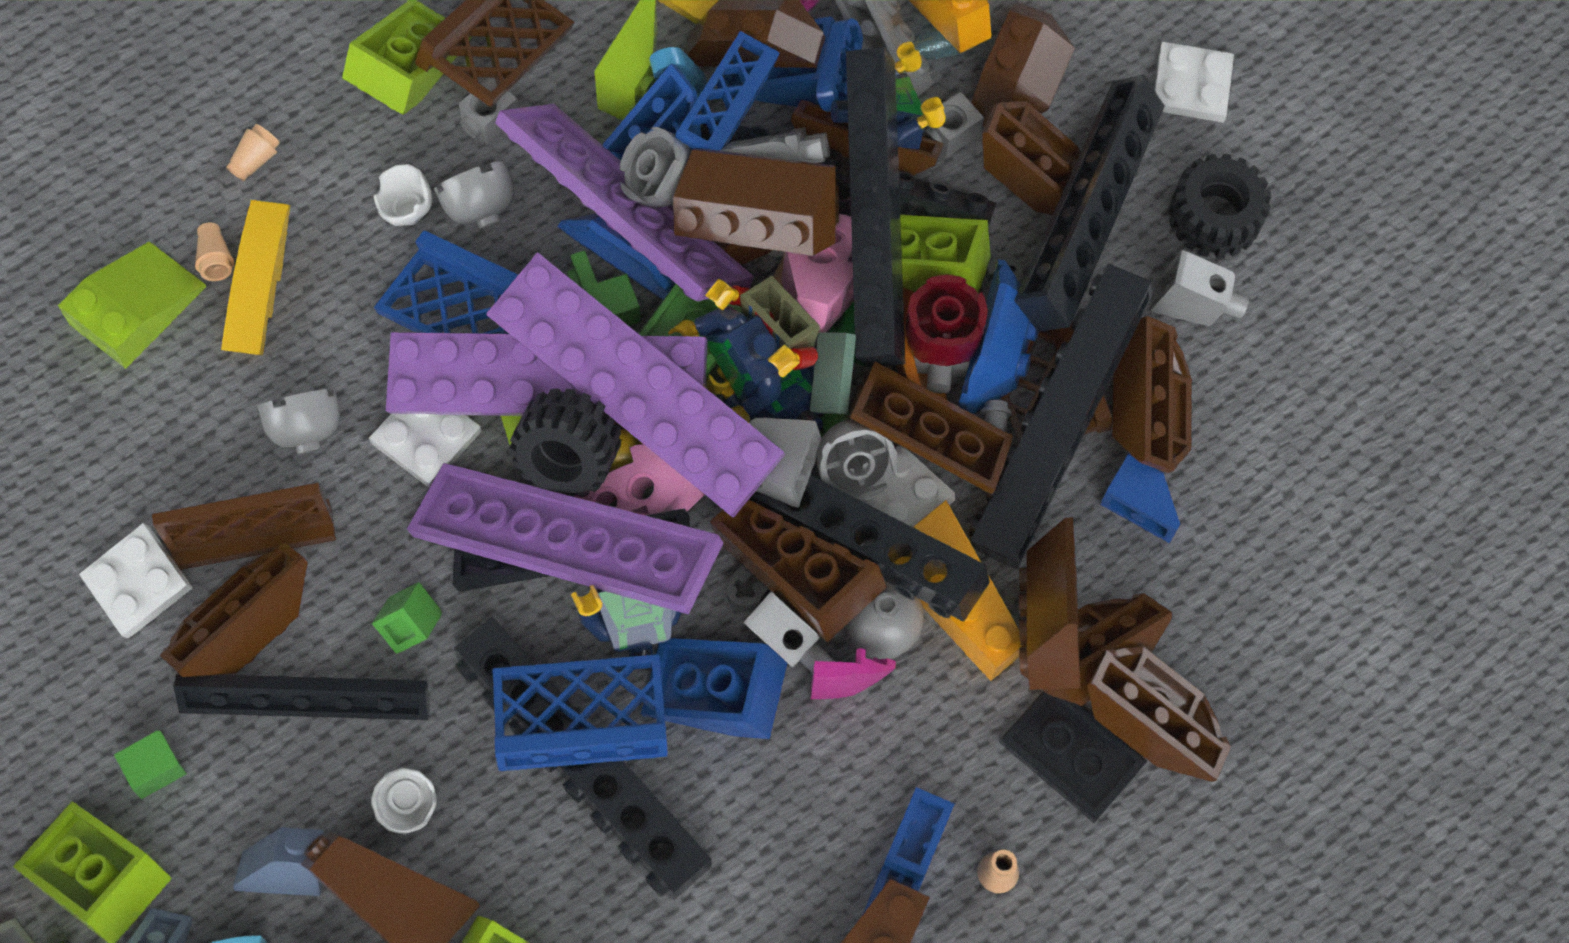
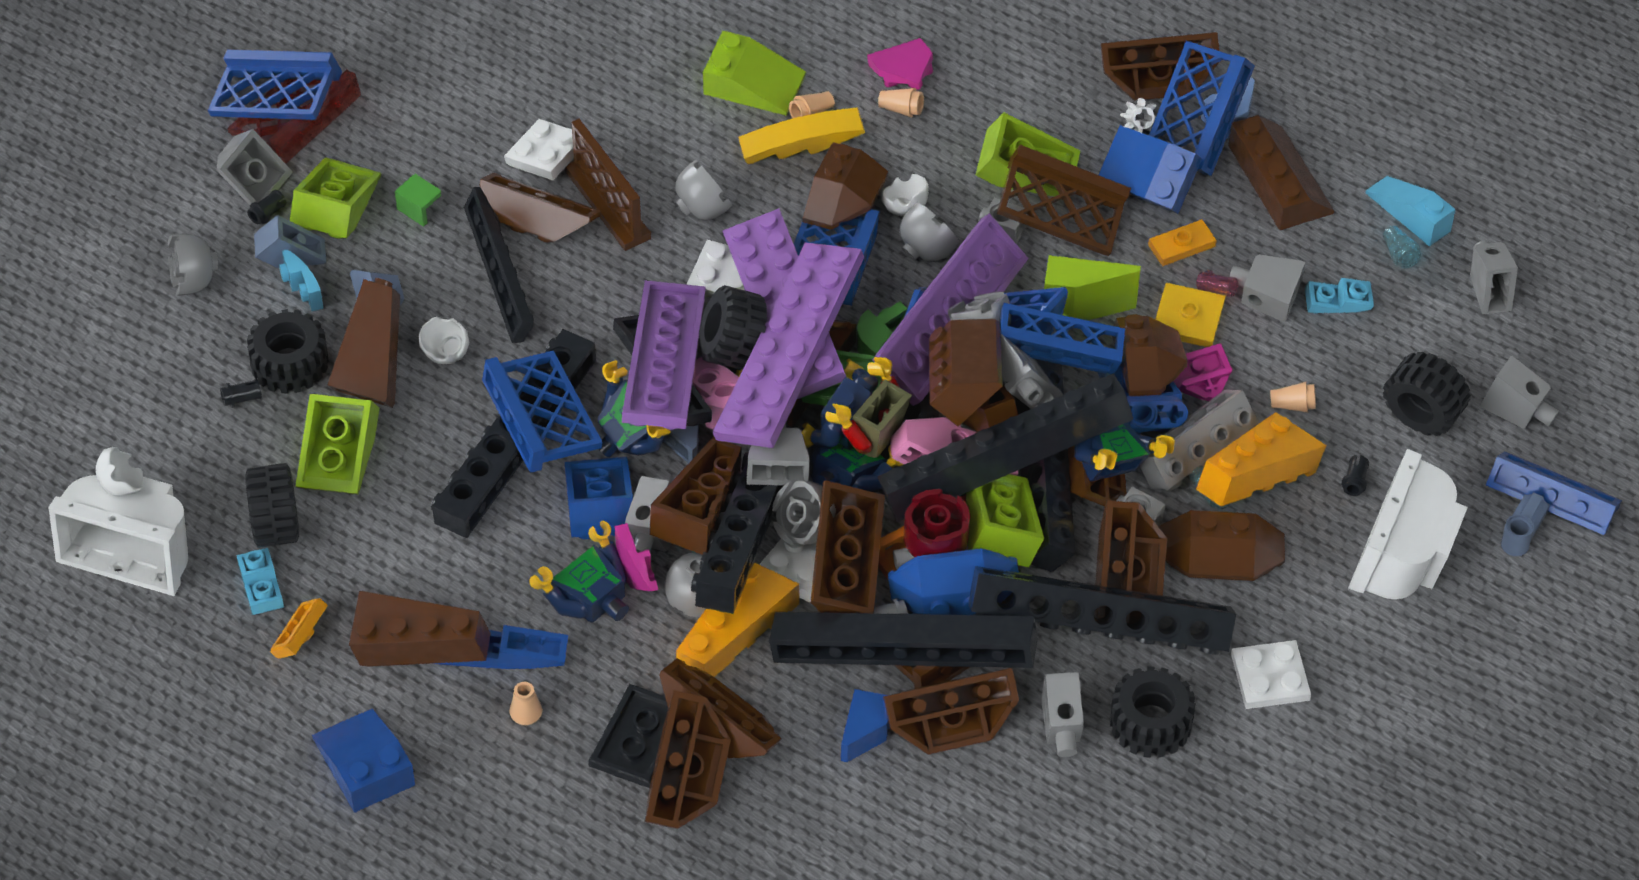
camera: 75 degrees right, 15 degrees down
(192, 131) = (903, 64): none -> dark pink slope
(367, 255) = (843, 187): none -> reddish brown wedge
(407, 618) = (579, 303): bright green panel -> none
(664, 57) = (1078, 306): dark azure beam -> none
(833, 373) = (864, 470): sand green tile -> none
(847, 737) = (589, 584): none -> torso
(1050, 611) = (731, 666): reddish brown slope -> none

